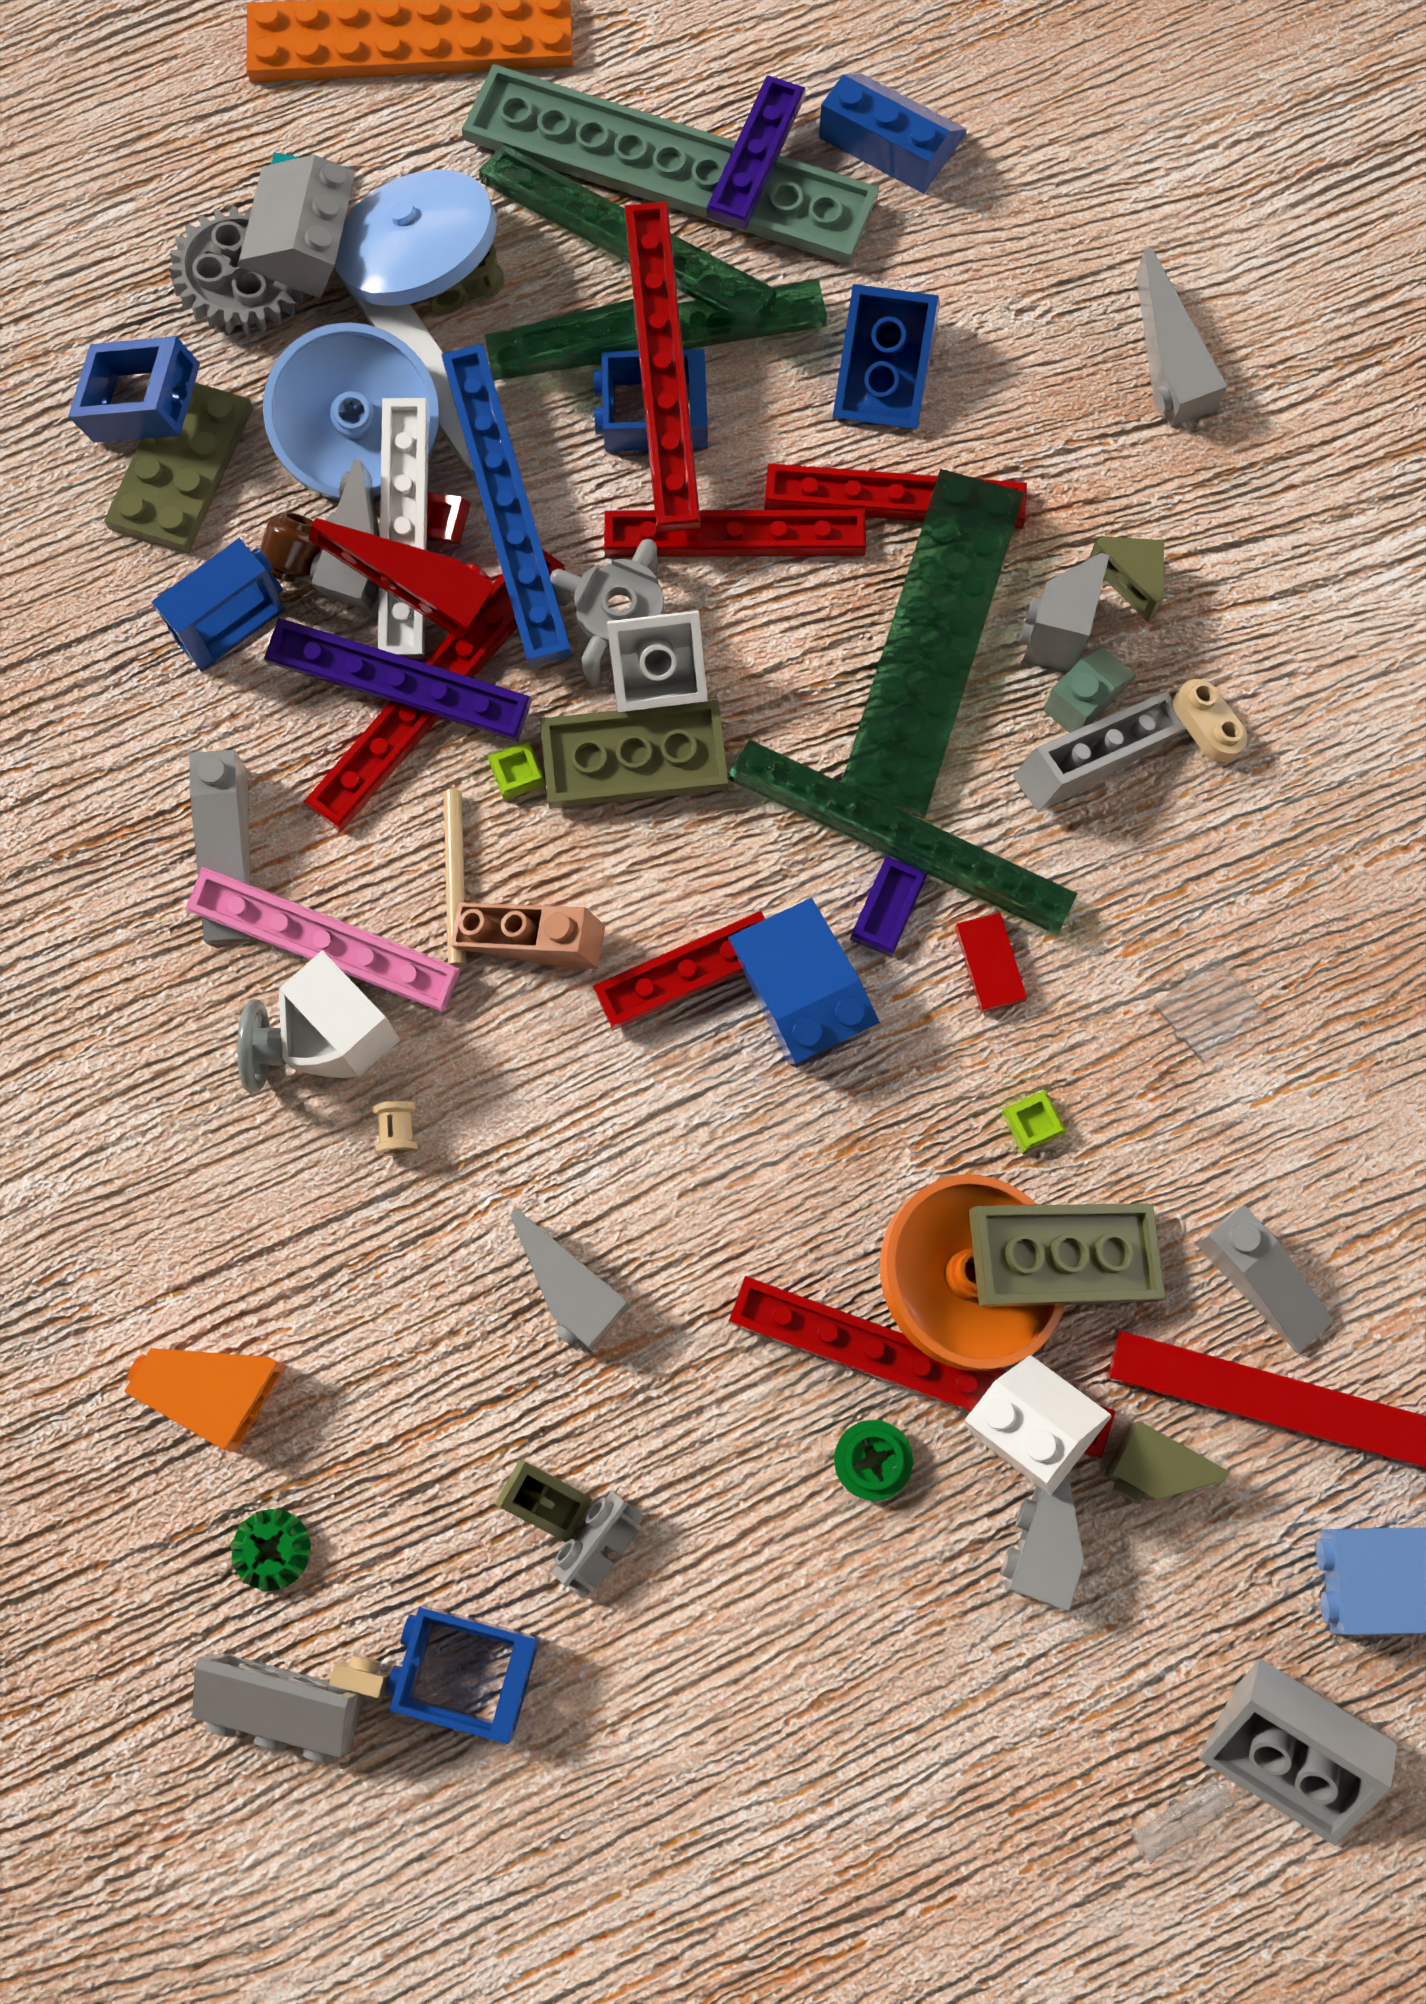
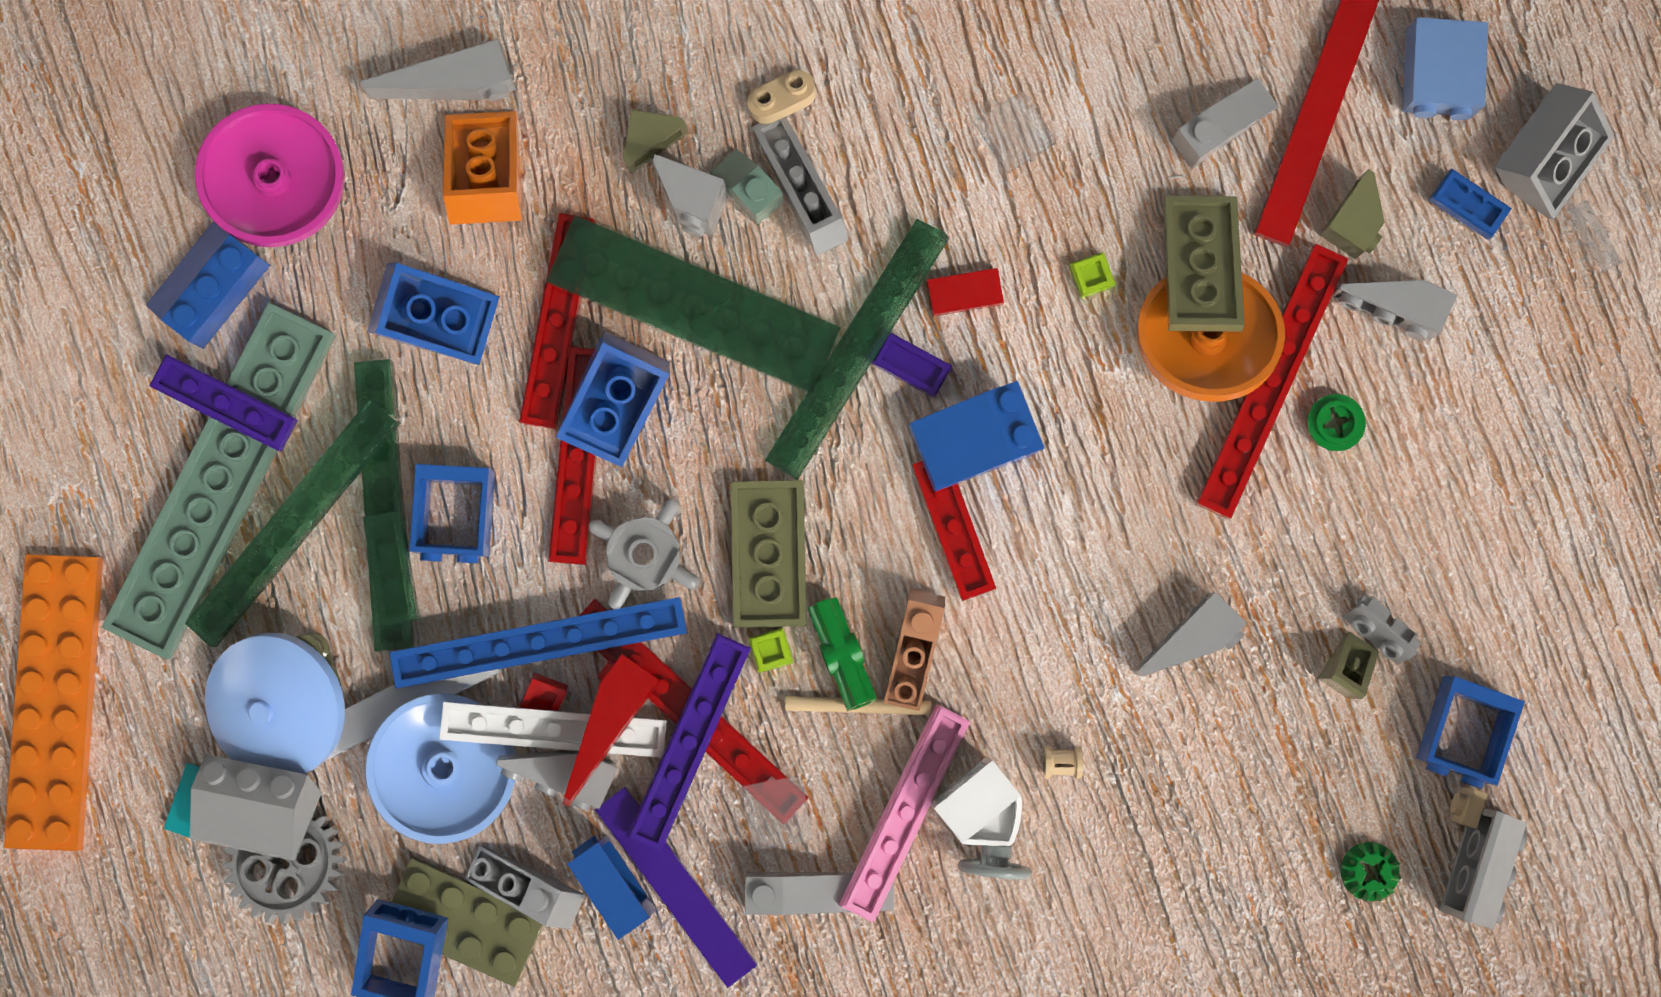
camera: 85 degrees left, 10 degrees up
(205, 1390) = (1253, 917): orange slope -> none
(213, 696) = (680, 893): none -> dark purple tile
(215, 516) = (525, 889): none -> light grey slope
(288, 546) = (558, 826): reddish brown head -> none
(317, 789) = (777, 812): none -> clear piece
(515, 846) = (842, 654): none -> green piece
(657, 661) = (705, 526): white slope -> none
(662, 368) = (430, 500): red tile -> none
(807, 556) = (613, 399): none -> blue slope
(1026, 170) = (269, 175): none -> dark pink dish
(1036, 1422) = (1327, 298): white slope -> none
(1067, 392) = (482, 168): none -> orange slope
(1202, 1630) = (1469, 204): none -> blue plate

